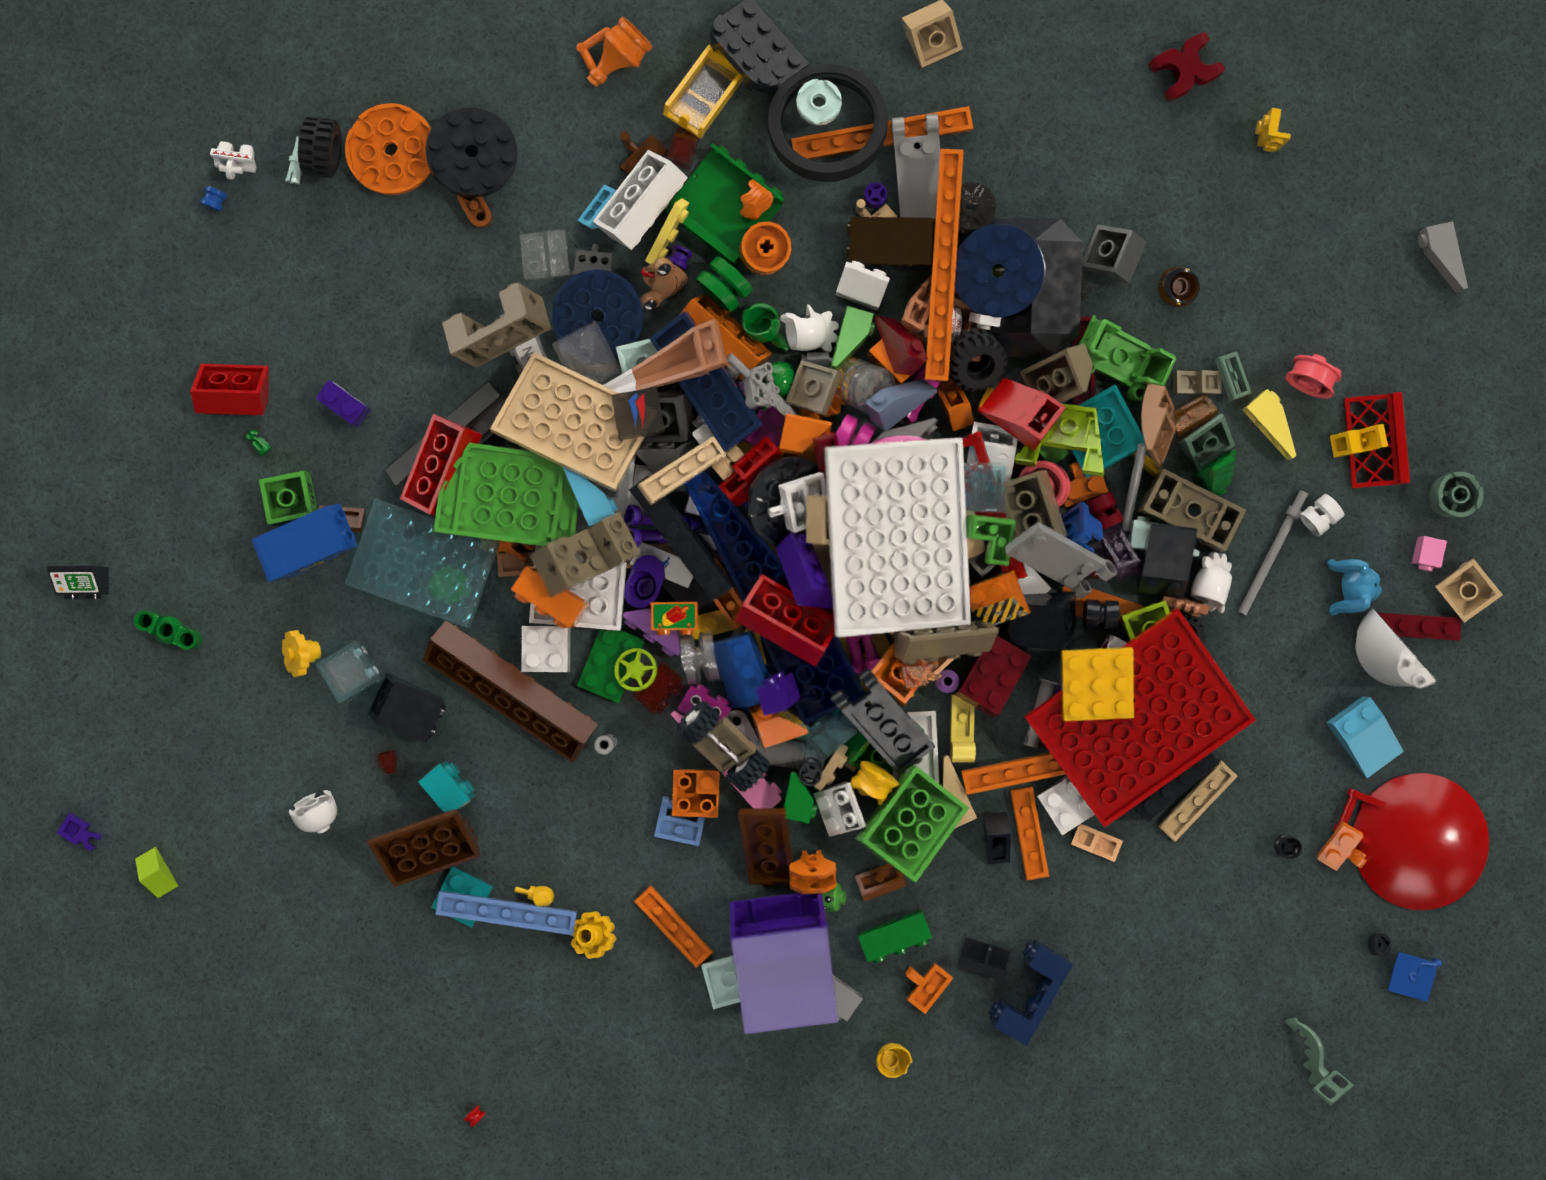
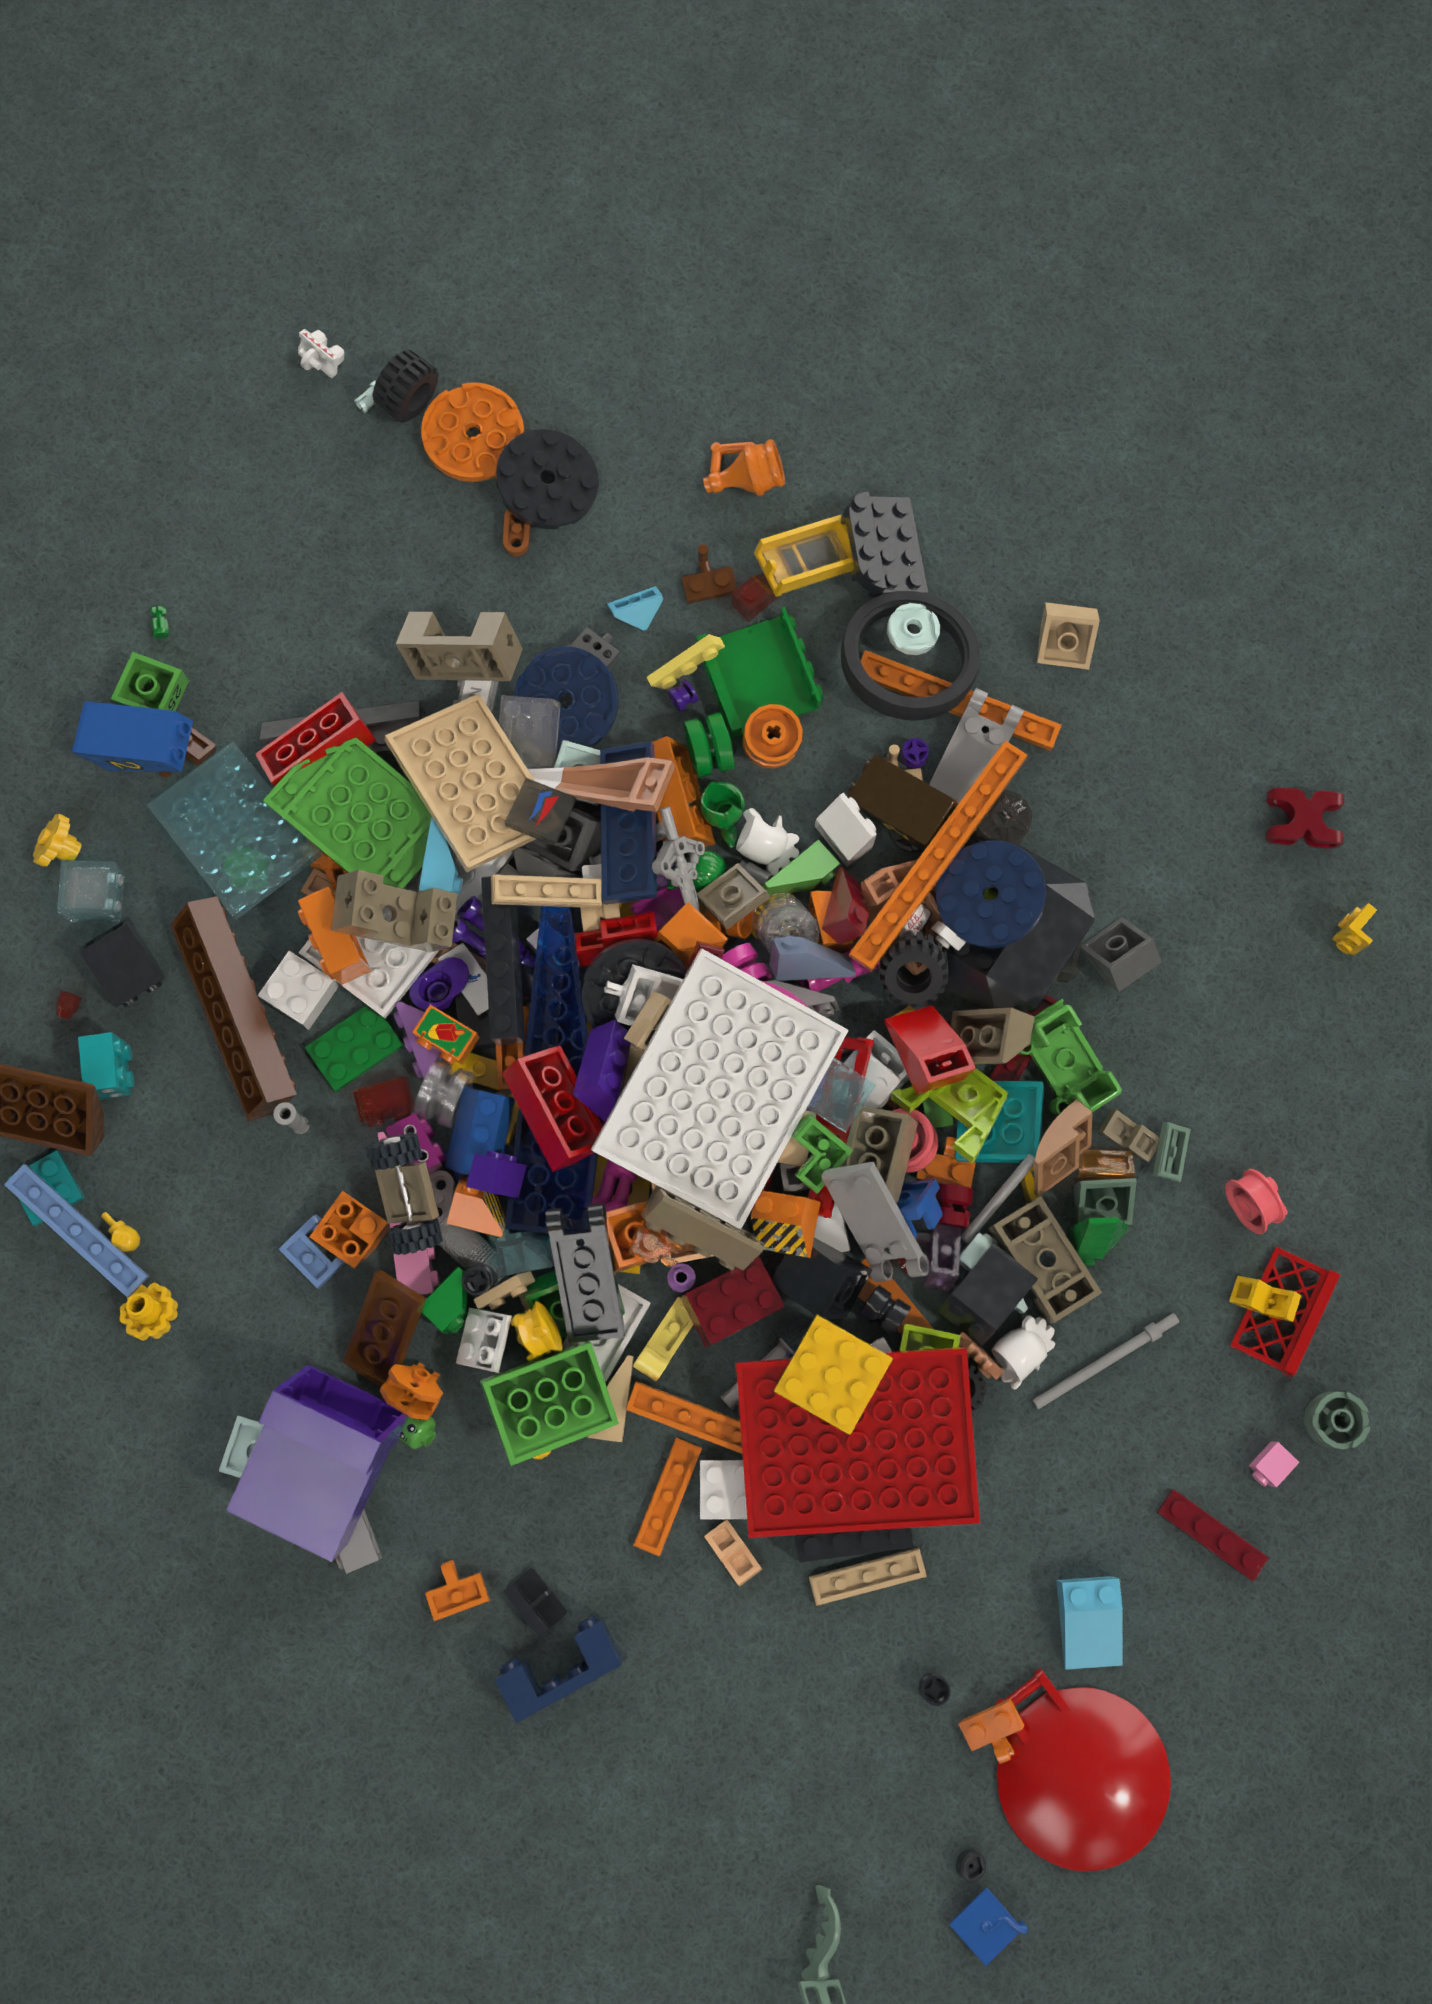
camera: 30 degrees right, 10 degrees down
(213, 198) = (275, 376): blue wheel -> none
(231, 389) = (167, 557): red slope -> none
(343, 403) = (264, 634): dark purple brick -> none
(544, 255) = (552, 613): clear bracket -> none
(635, 669) = (372, 1066): lime wheel -> none
(640, 199) = (679, 616): white brick -> none
(664, 280) = (653, 707): medium nougat head -> none
(673, 926) = (236, 1357): orange tile -> none
(755, 201) = (791, 685): orange hair -> none
(879, 881) = (478, 1448): dark orange slope -> none
(893, 1060) = (367, 1650): yellow hair -> none
(894, 936) = (455, 1516): green brick -> none
(955, 405) = (866, 1004): orange slope -> none
(997, 838) = (629, 1479): black slope -> none
(1178, 287) = (1168, 1028): reddish brown piece -> none
(1271, 420) = (1184, 1219): light yellow slope -> none
(1324, 512) = (1181, 1352): white wheel -> none
(1359, 586) = (1177, 1450): dark azure hair -> none
(1386, 655) = (1162, 1545): white cone -> none
(1468, 590) = (1293, 1531): tan slope -> none

